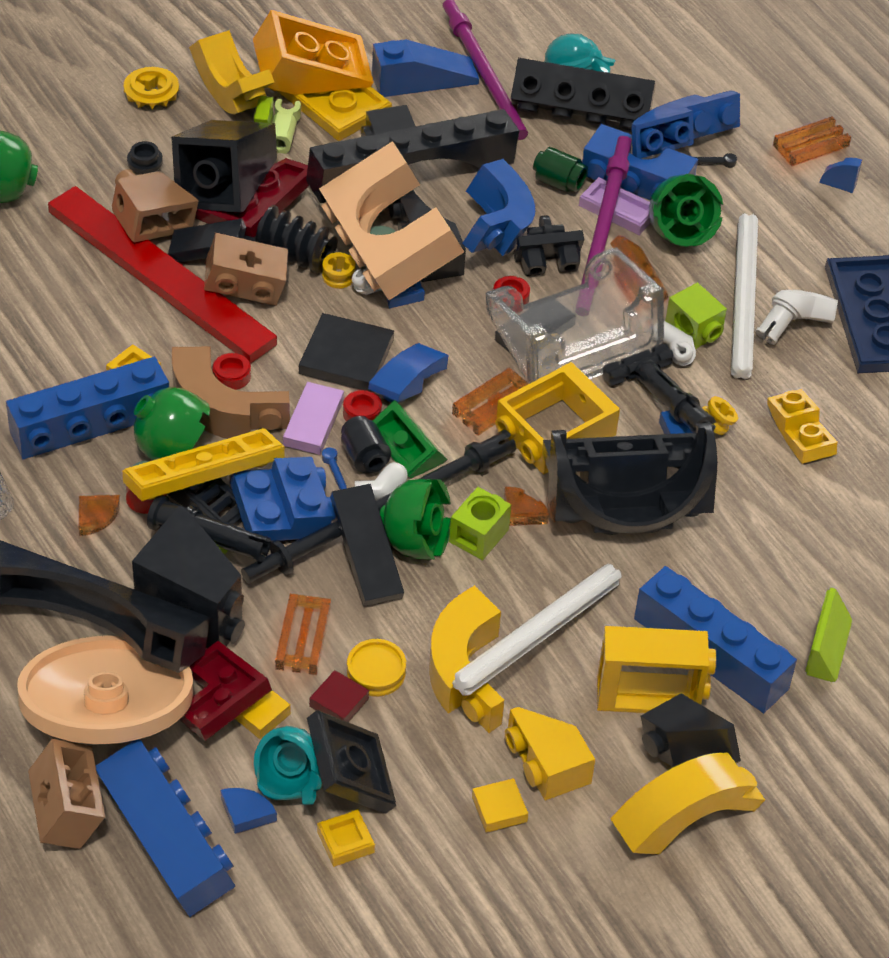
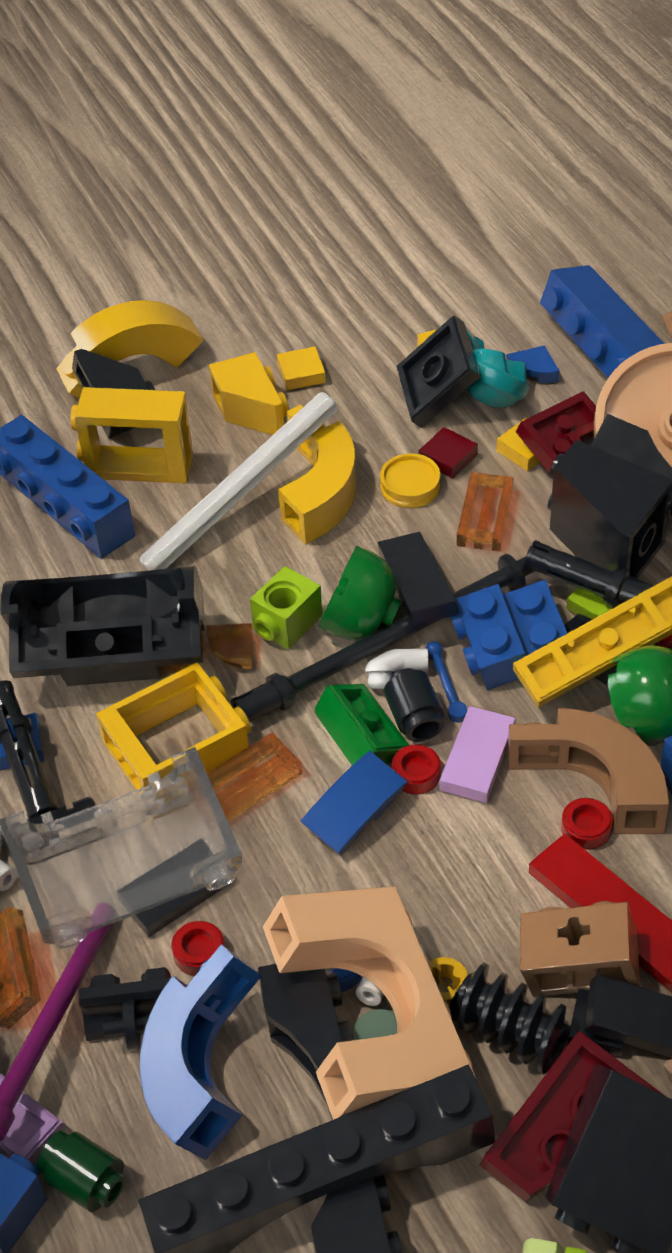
camera: 170 degrees left, 0 degrees up
(346, 351) = (434, 850): black tile -> none

